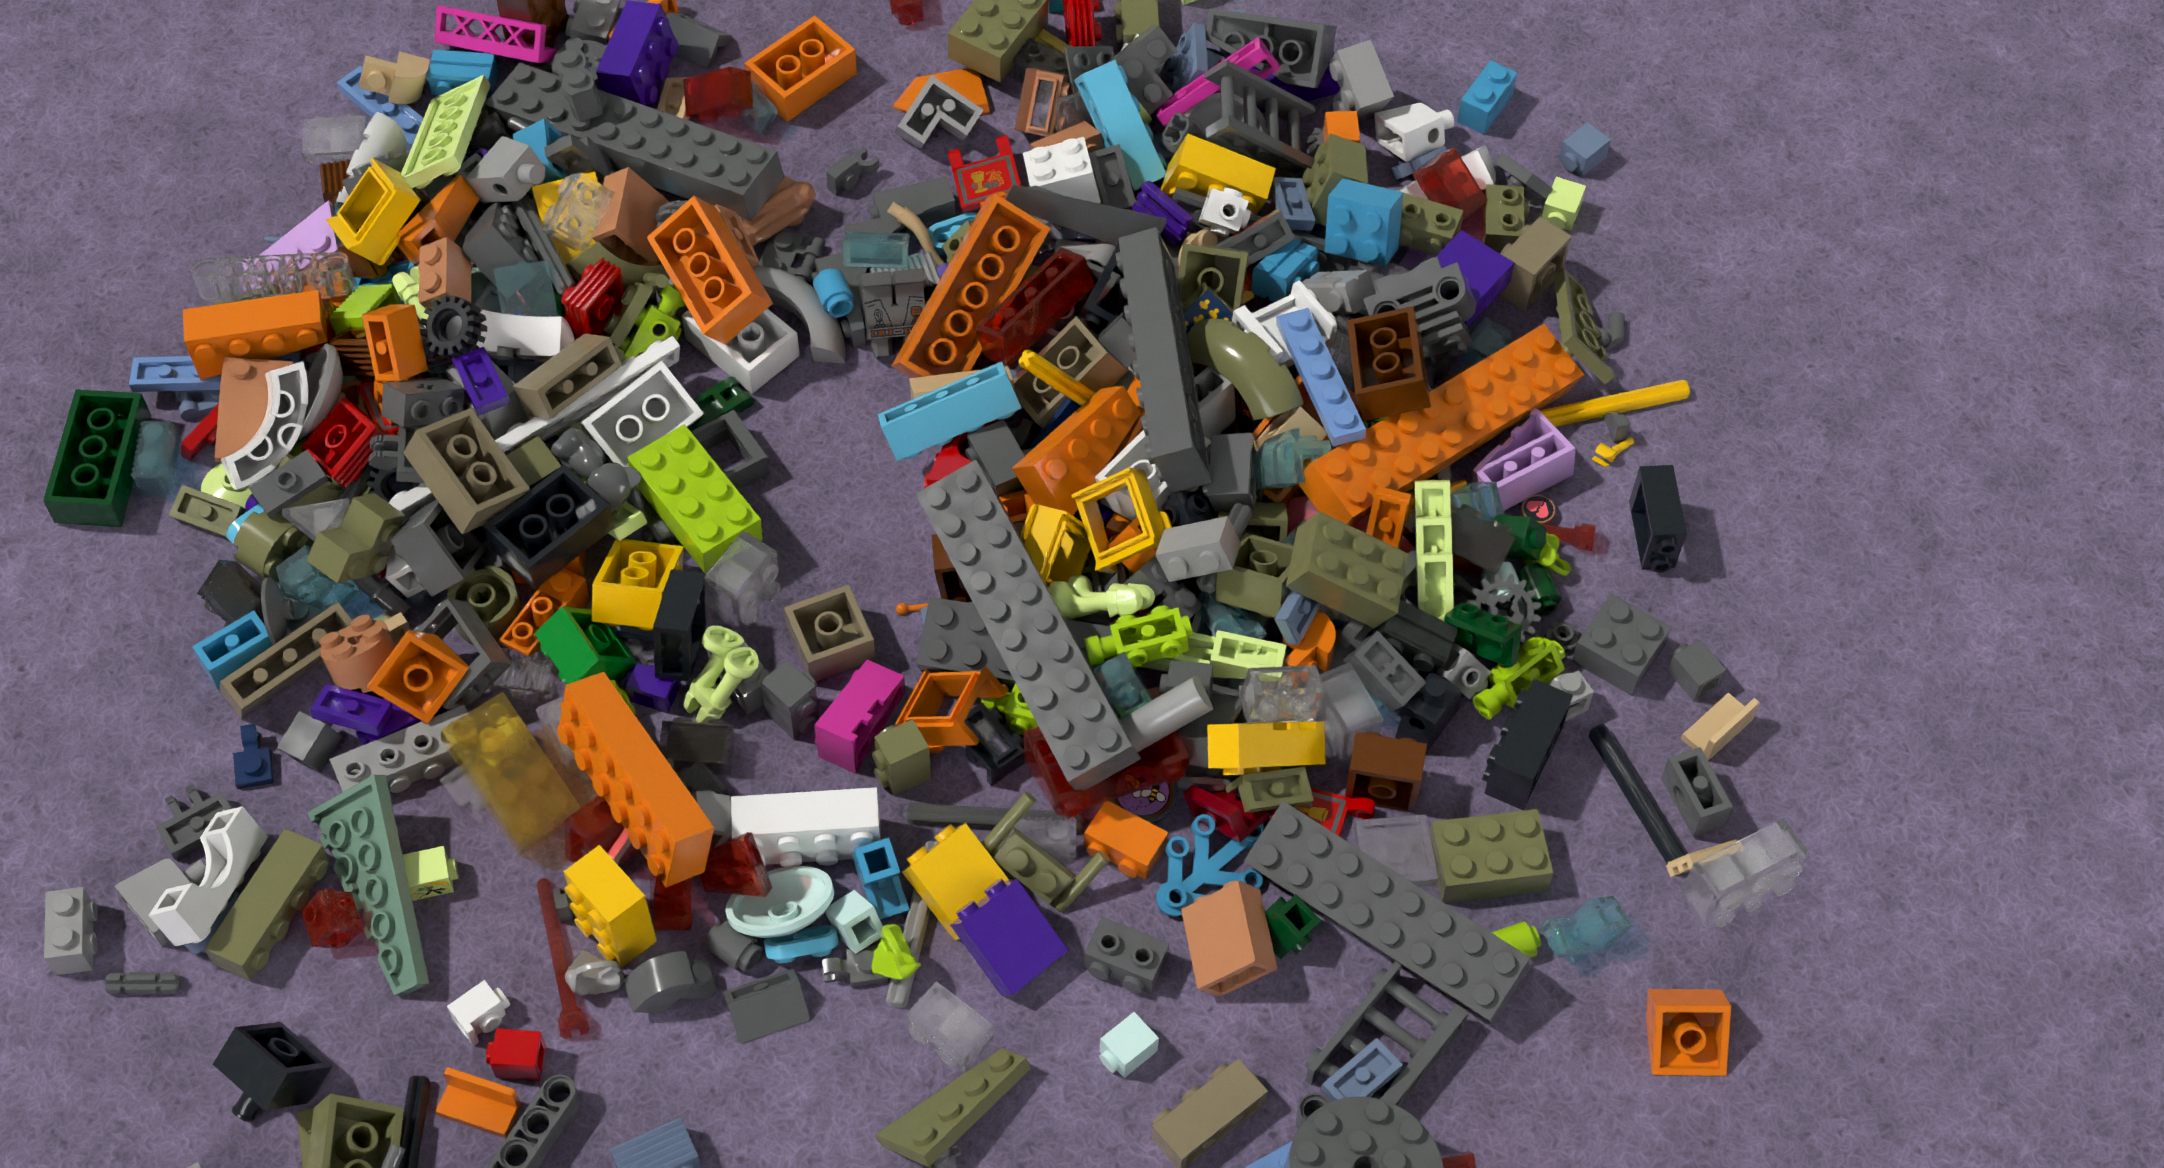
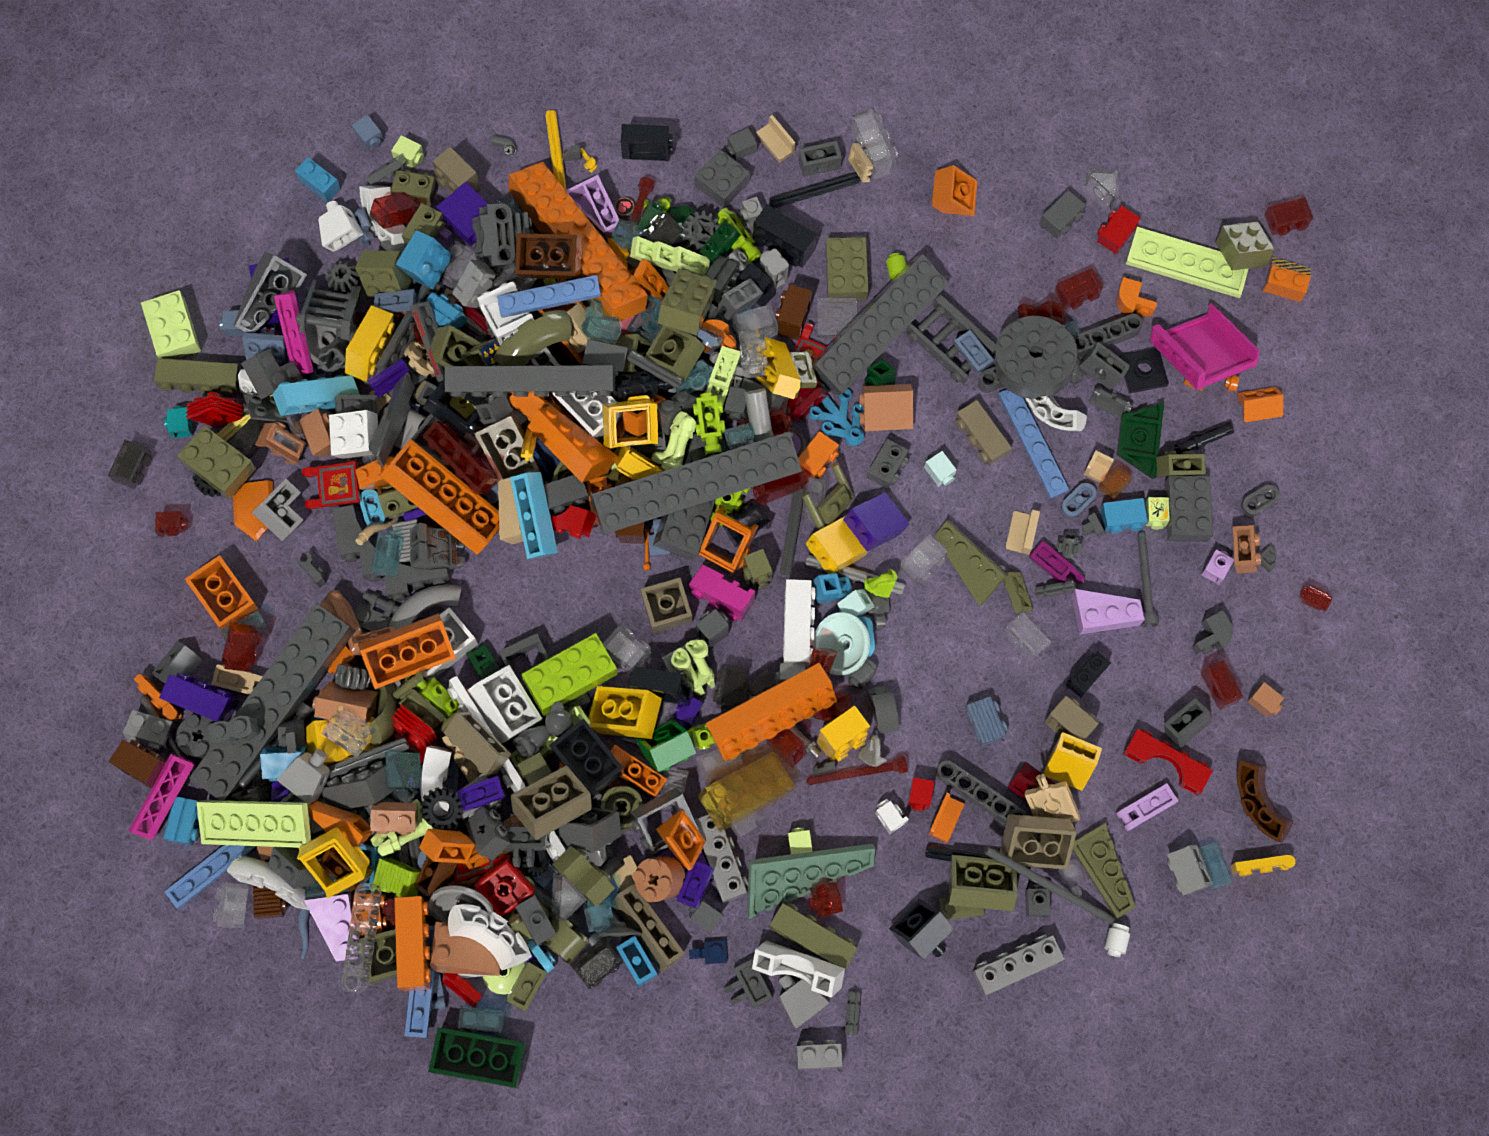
camera: 85 degrees left, 15 degrees up
(398, 80) = (186, 862): tan brick -> none
(766, 1006) = (897, 658): dark grey panel -> none
(834, 292) = (421, 582): dark azure brick -> none
(1198, 549) = (663, 379): light grey brick -> none
(1213, 214) = (404, 338): white brick -> none
(1341, 124) = (343, 265): orange brick -> none
(1360, 80) = (305, 248): light grey brick -> none
(1461, 732) = (774, 267): none -> light grey brick
(1570, 632) = (713, 205): dark grey plate -> none
(1577, 327) = (505, 158): olive wing -> none
(1588, 930) = (895, 229): clear light blue brick -> none

